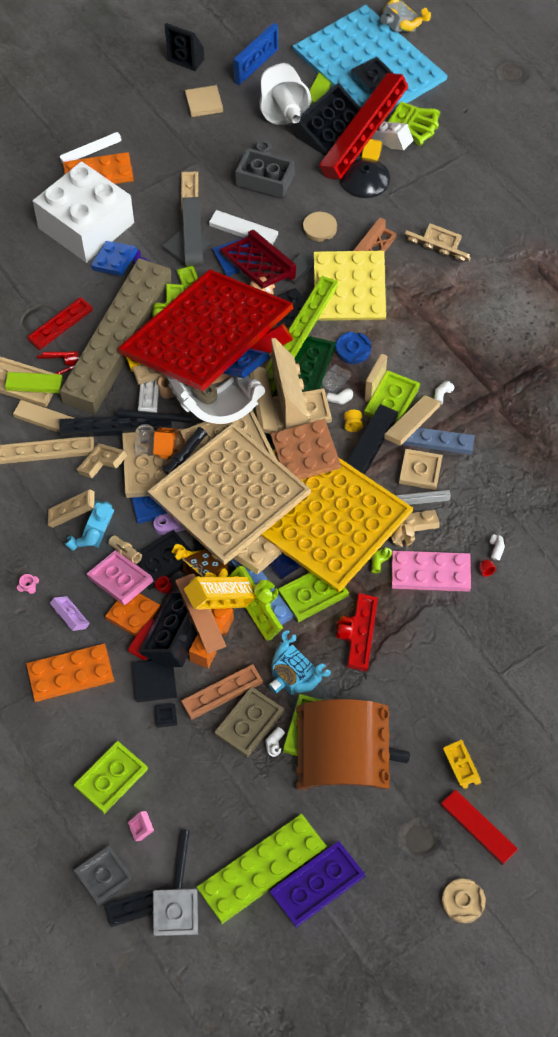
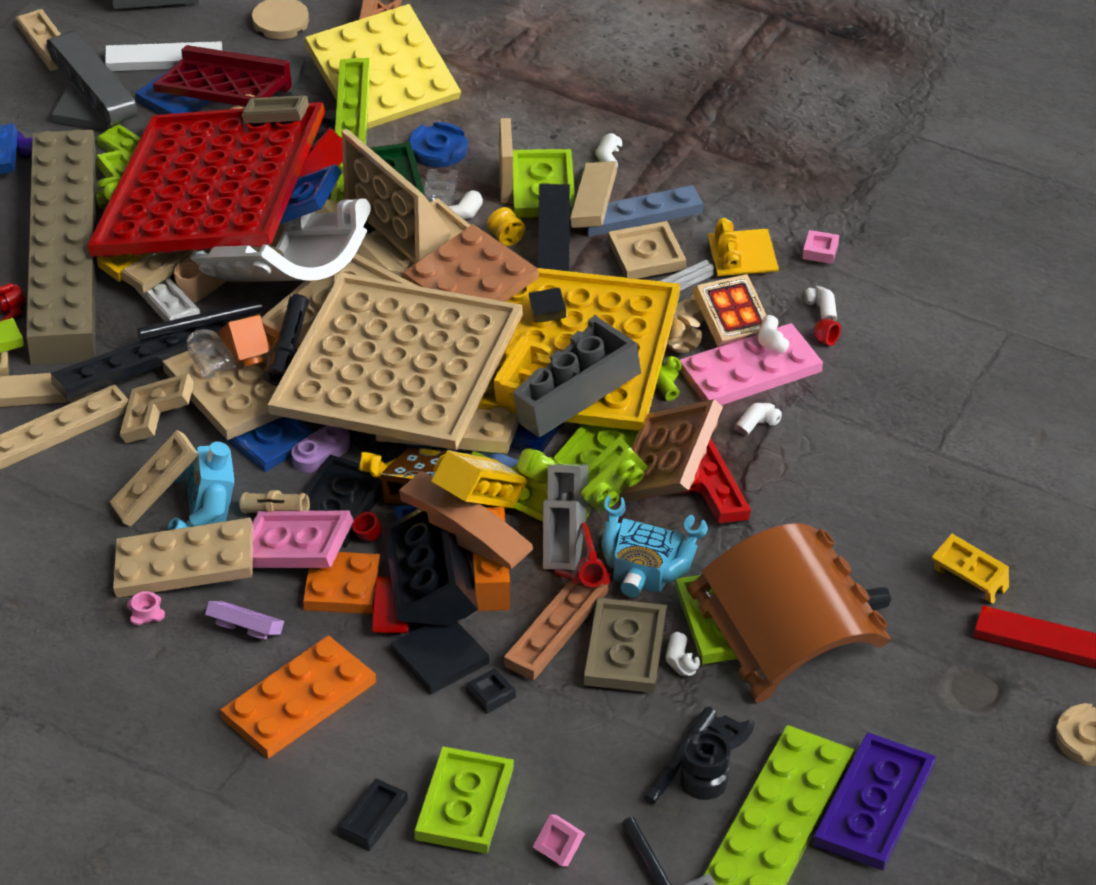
camera: 30 degrees left, 15 degrees down
(62, 562) = (184, 557): none -> tan plate
(63, 762) = (372, 814): none -> black tile
(240, 819) = (705, 765): none -> black wheel
(252, 671) = (590, 568): none -> red plant
(262, 628) = (564, 515): none -> light grey slope
(263, 789) = (706, 720): none -> black piece
(265, 297) = (275, 109): none -> dark tan tile
(291, 530) = (518, 368): none -> yellow hinge
(298, 614) = (612, 473): none -> lime bracket
(314, 547) = (577, 377): none -> dark grey wedge
(332, 489) = (547, 305): none -> black tile
(337, 615) = (672, 448): none -> nougat plate
(412, 605) = (758, 414): none -> white arm
(438, 532) = (730, 308): none -> tile
(446, 560) = (770, 337): none -> white arm
(474, 491) = (741, 250): none -> yellow hinge
(520, 508) = (820, 247): none -> bright pink plate

